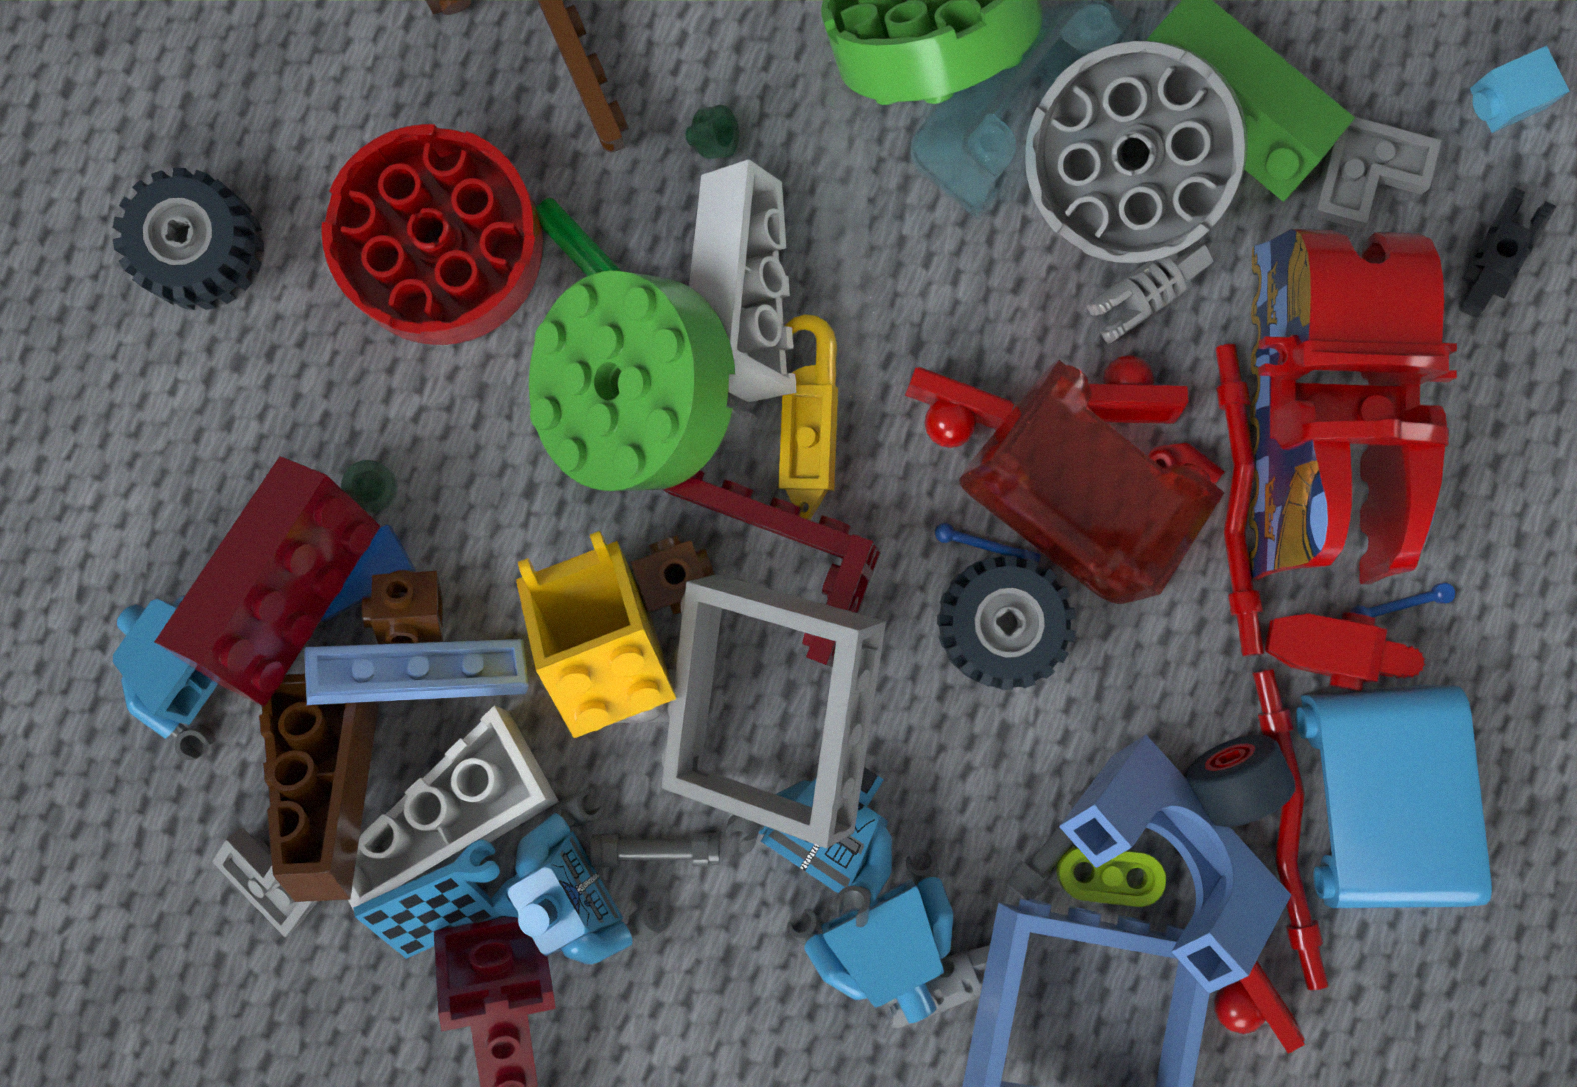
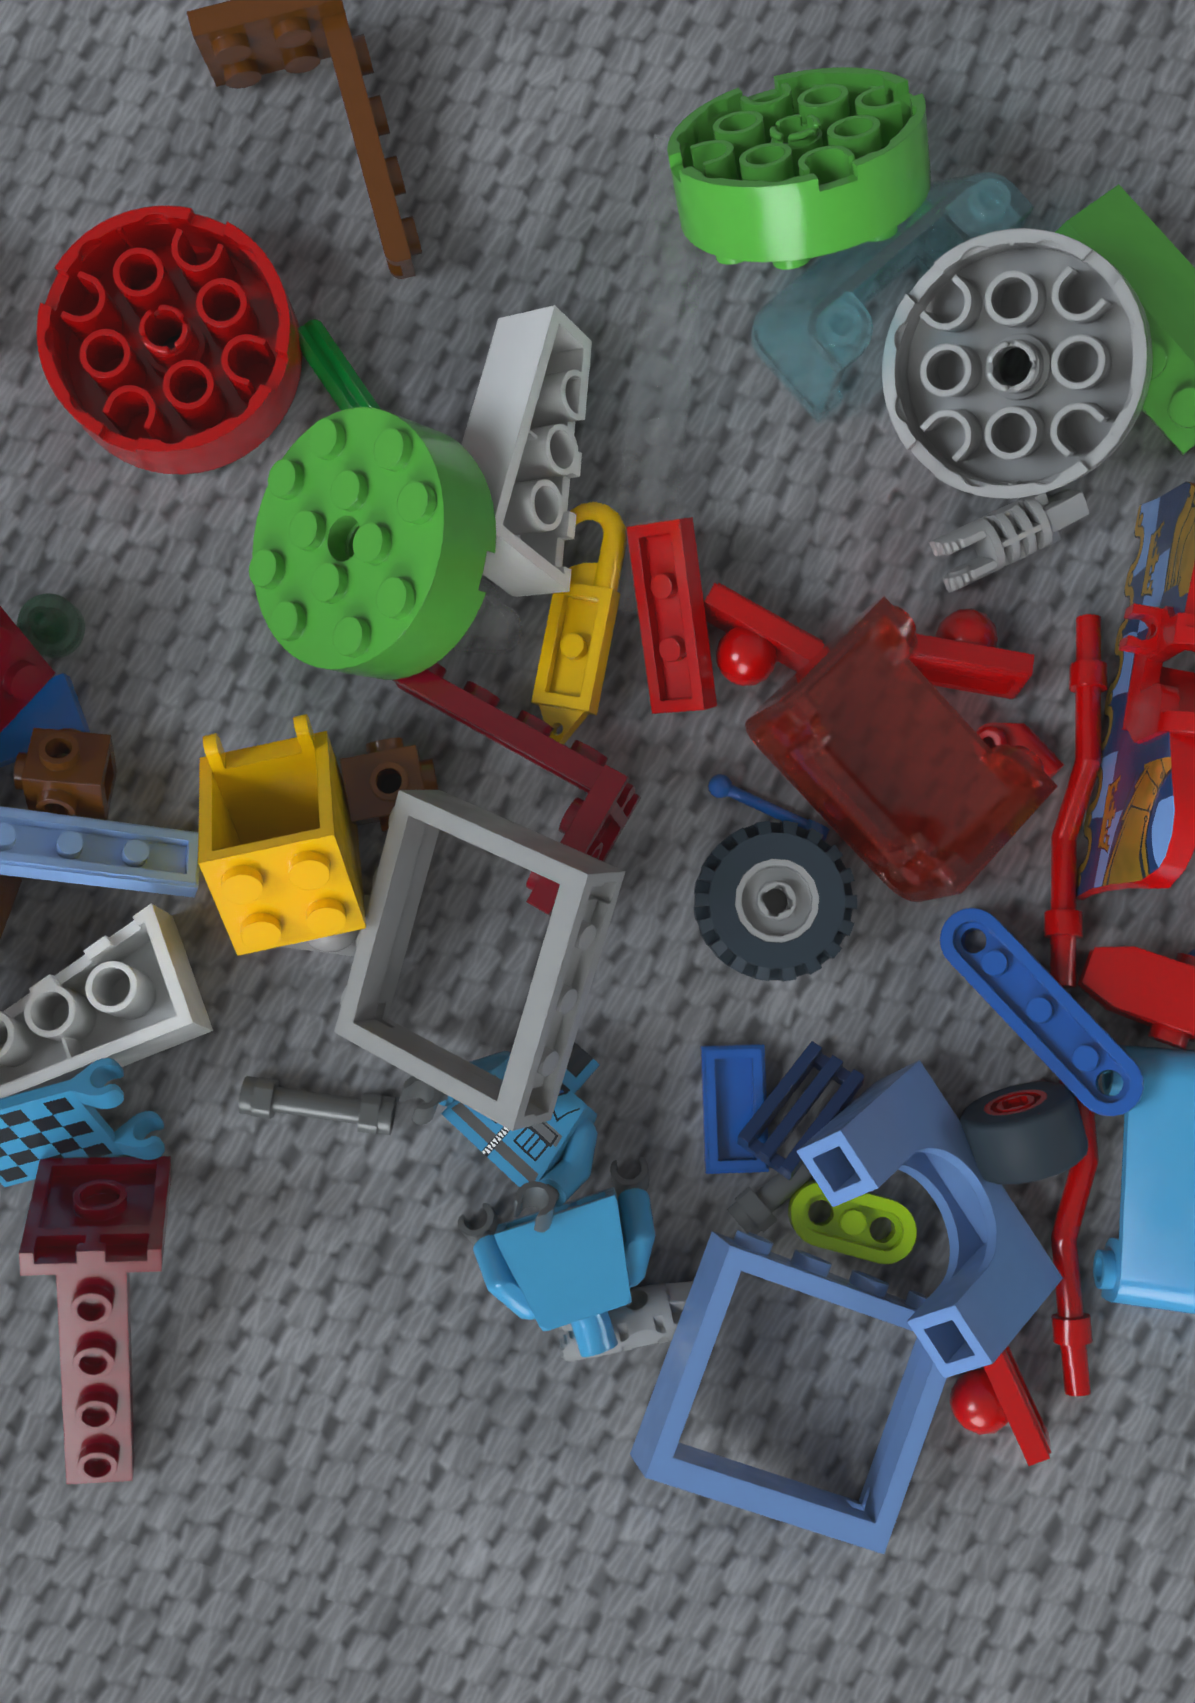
camera: 10 degrees right, 0 degrees up
(563, 897) = (198, 1144): dark azure torso -> none
(714, 132) = (522, 272): clear green tile -> none
(884, 400) = (672, 616): none -> red plate
(999, 797) = (731, 1096): none -> blue tile
(1072, 753) = (830, 1070): none -> dark blue tile
(1239, 679) = (1041, 1012): none -> blue plate

